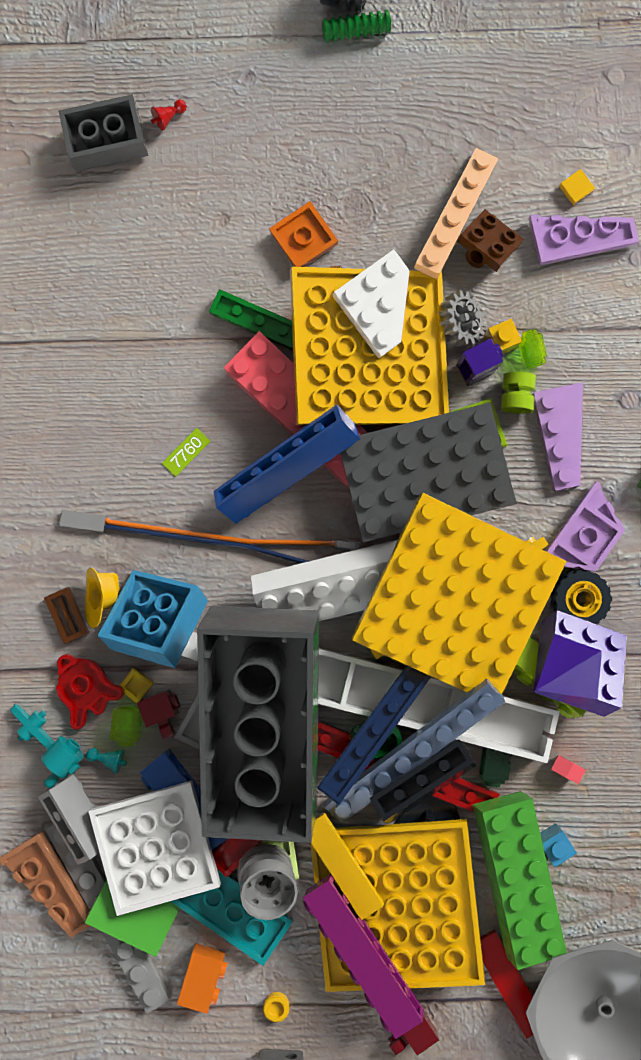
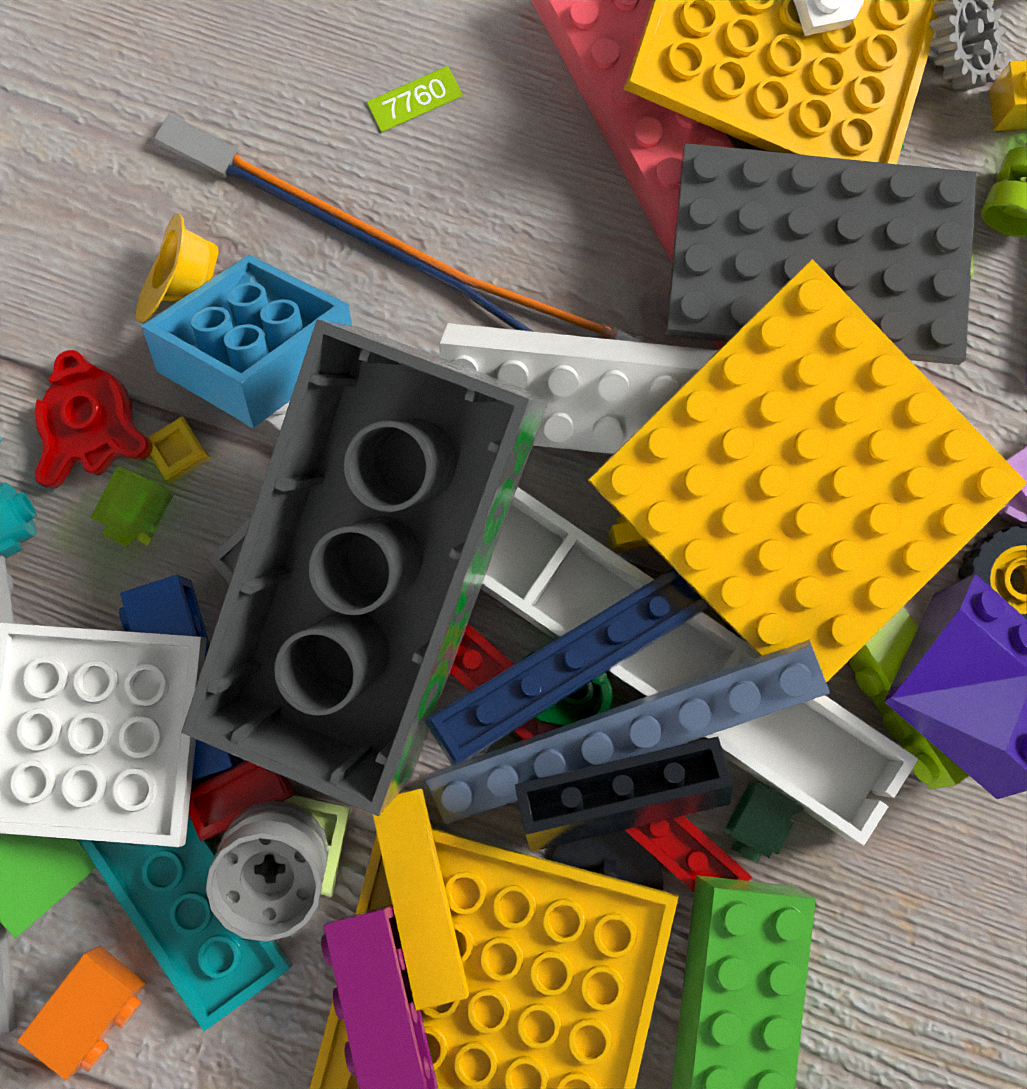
camera: 15 degrees right, 5 degrees down
(57, 619) = (108, 327): reddish brown tile -> none
(111, 760) = (82, 561): teal piece -> none
(159, 710) = (199, 501): dark red brick -> none
(286, 464) = (582, 153): blue brick -> none
(480, 362) = (975, 112): dark purple piece -> none
(556, 845) = (829, 1011): dark azure brick -> none
(568, 769) = (893, 879): coral piece -> none

